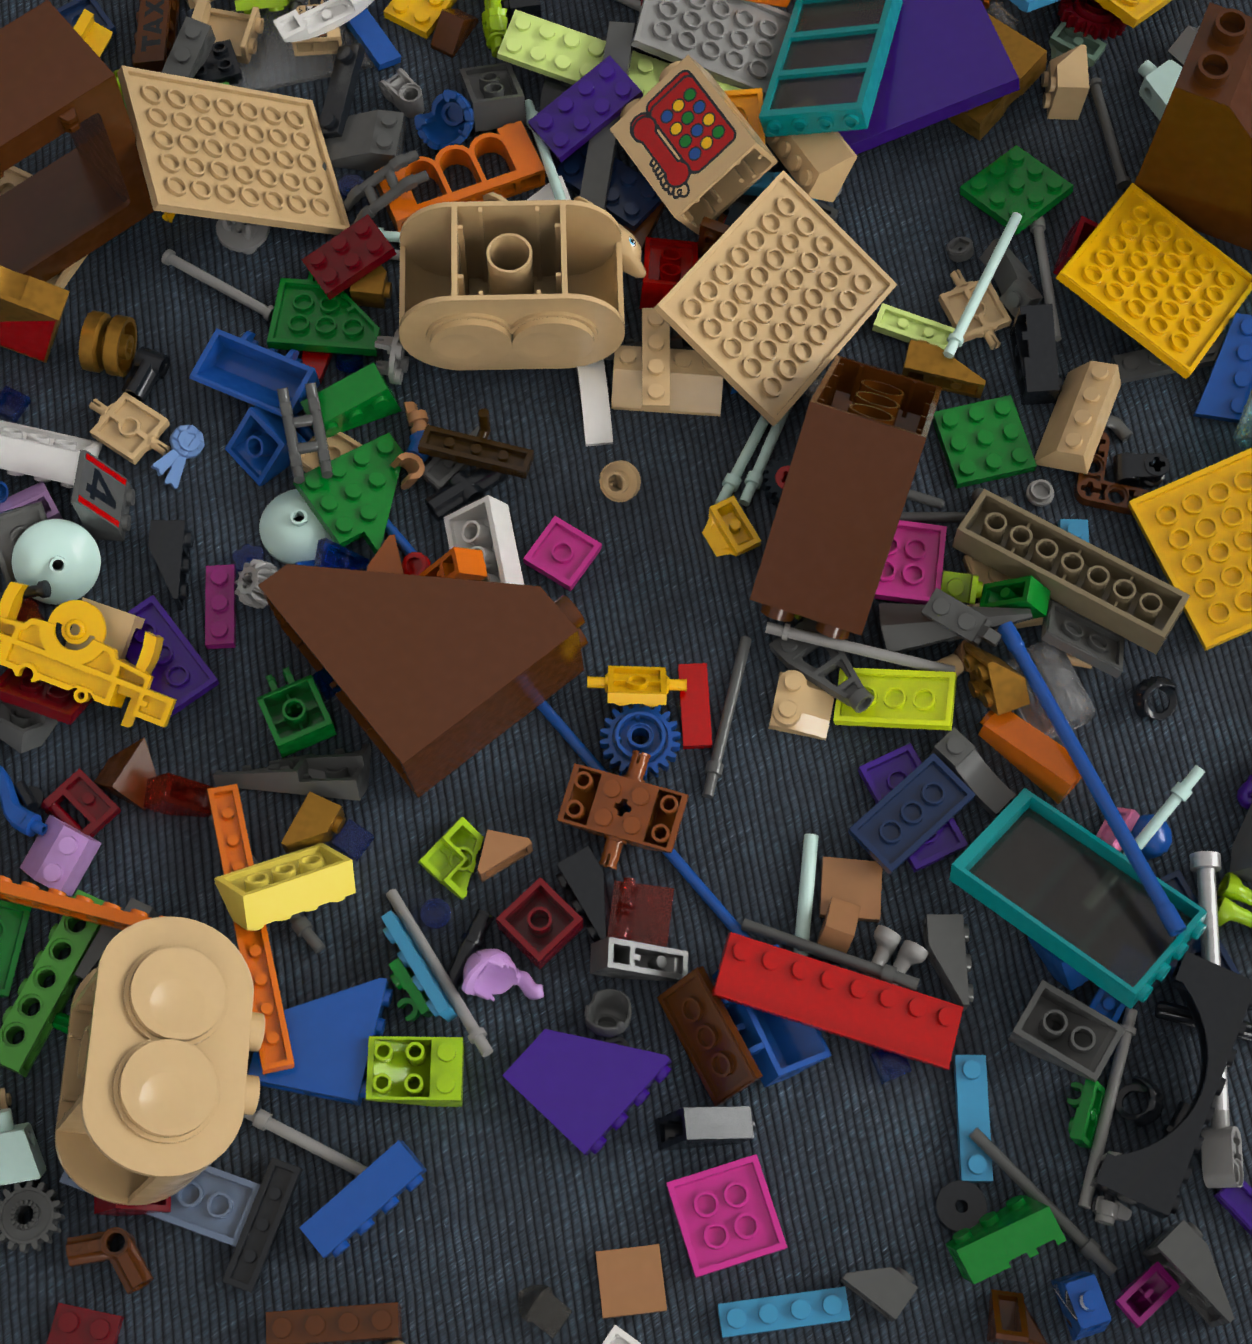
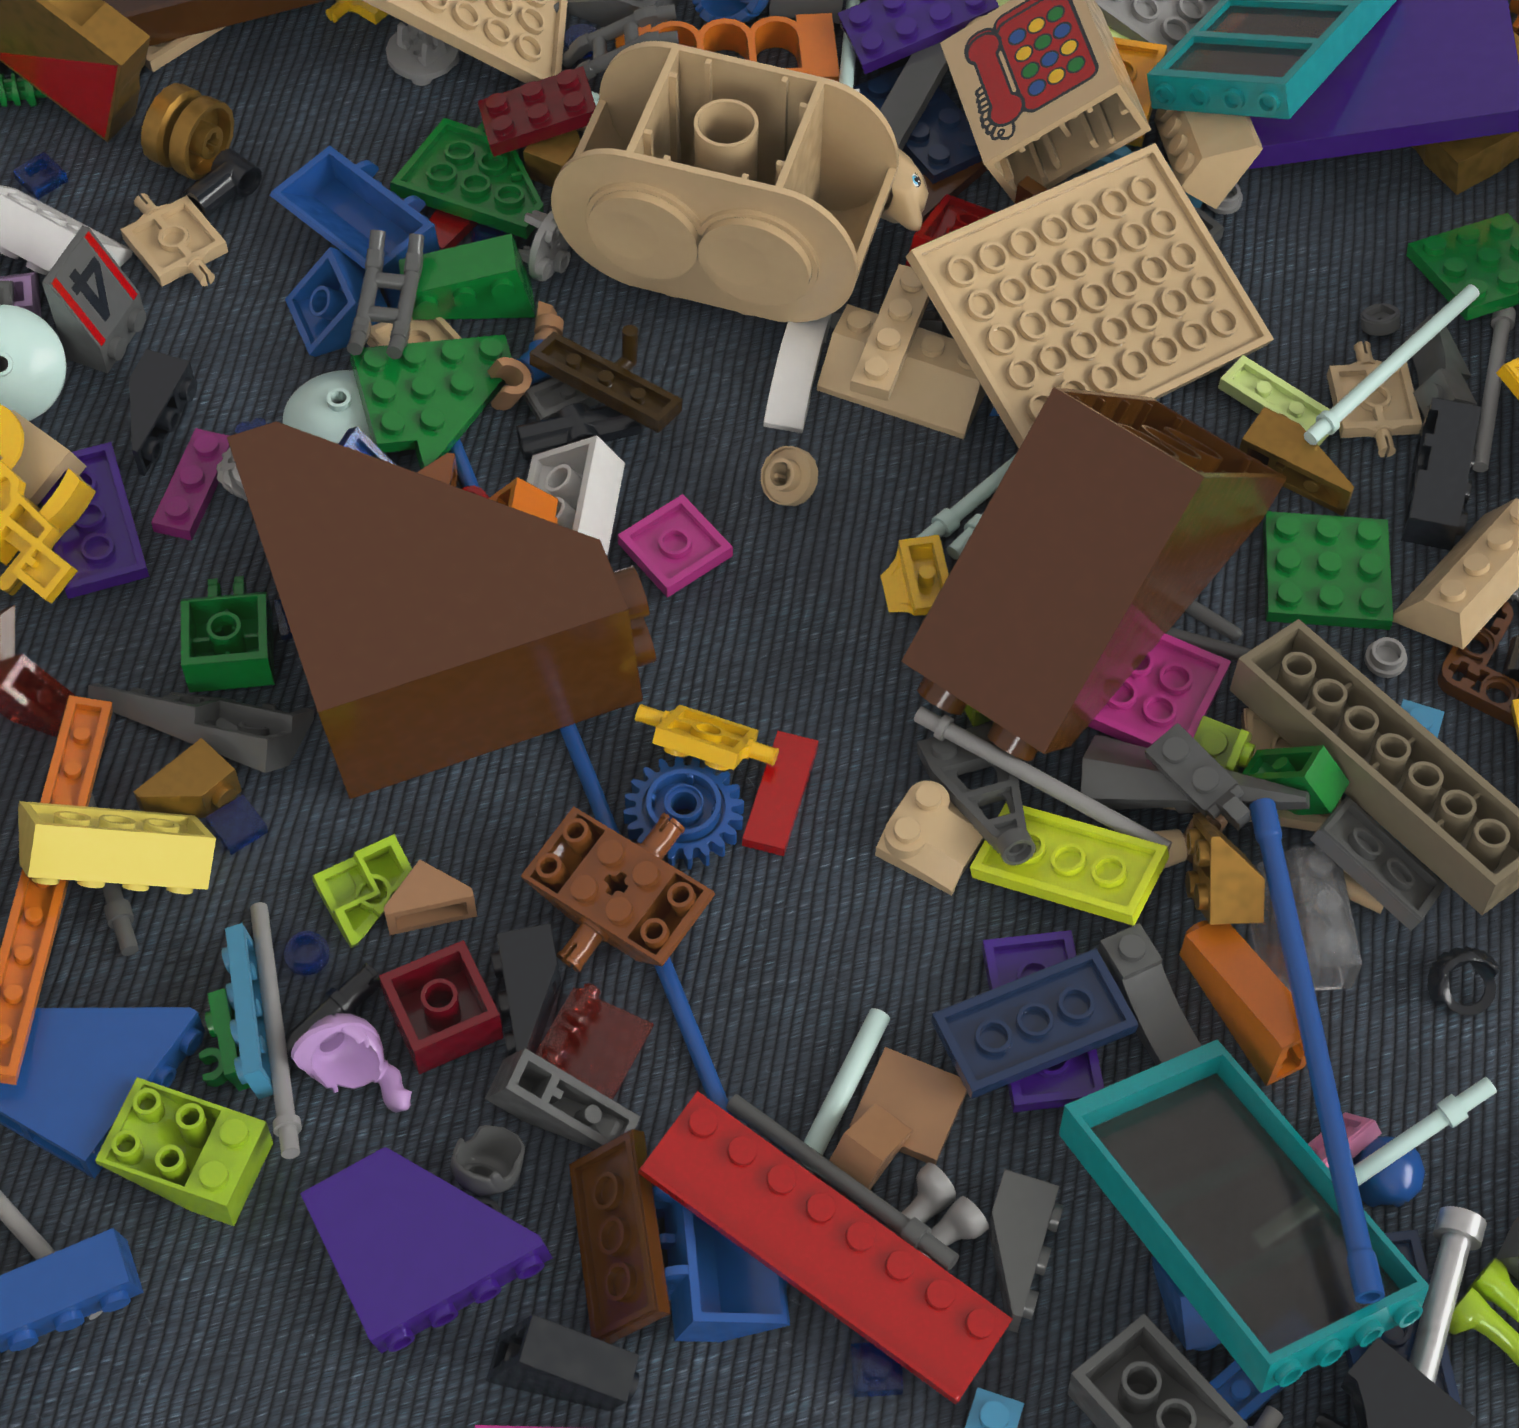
camera: 20 degrees right, 10 degrees down
(170, 258) = (315, 62): light grey bar -> none
(185, 443) = (235, 277): medium blue piece -> none
(714, 766) = (777, 879): dark grey bar -> none

